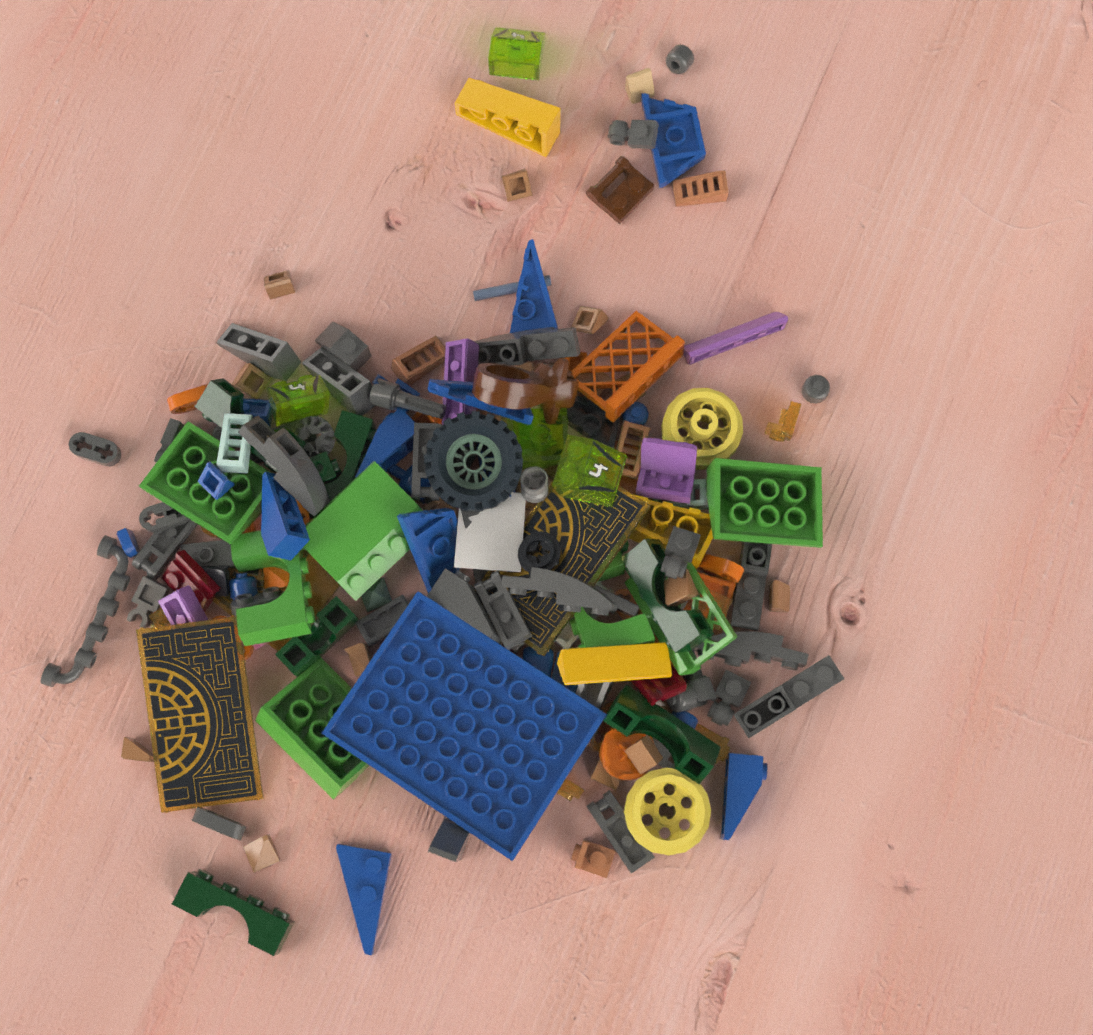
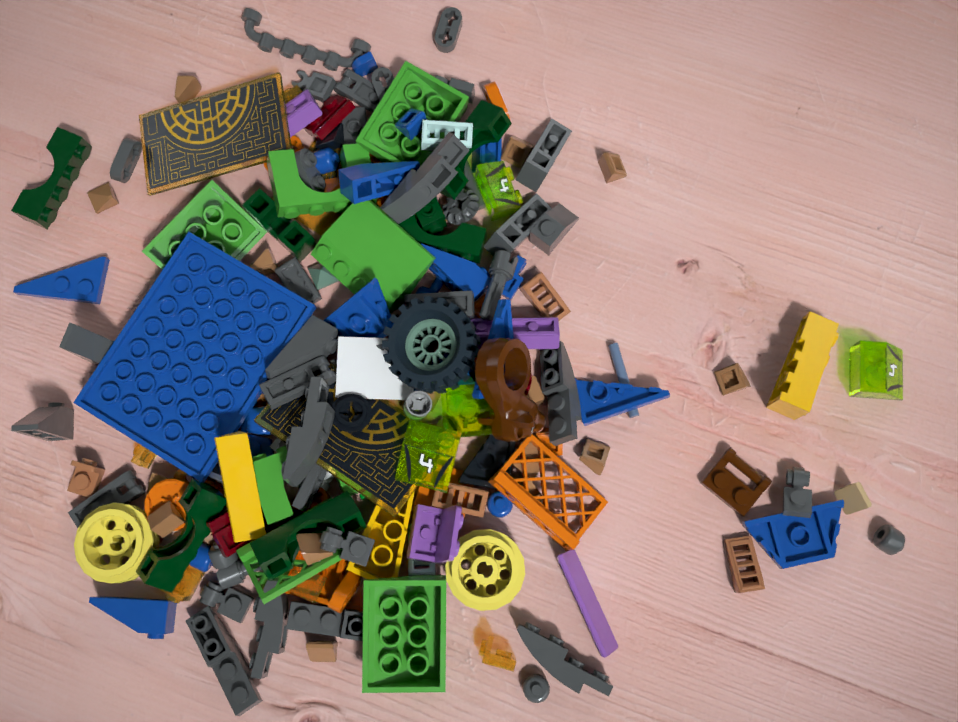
camera: 95 degrees right, 0 degrees up
(529, 894) = (47, 423): none -> dark grey slope
(790, 366) = (552, 655): none -> dark grey slope

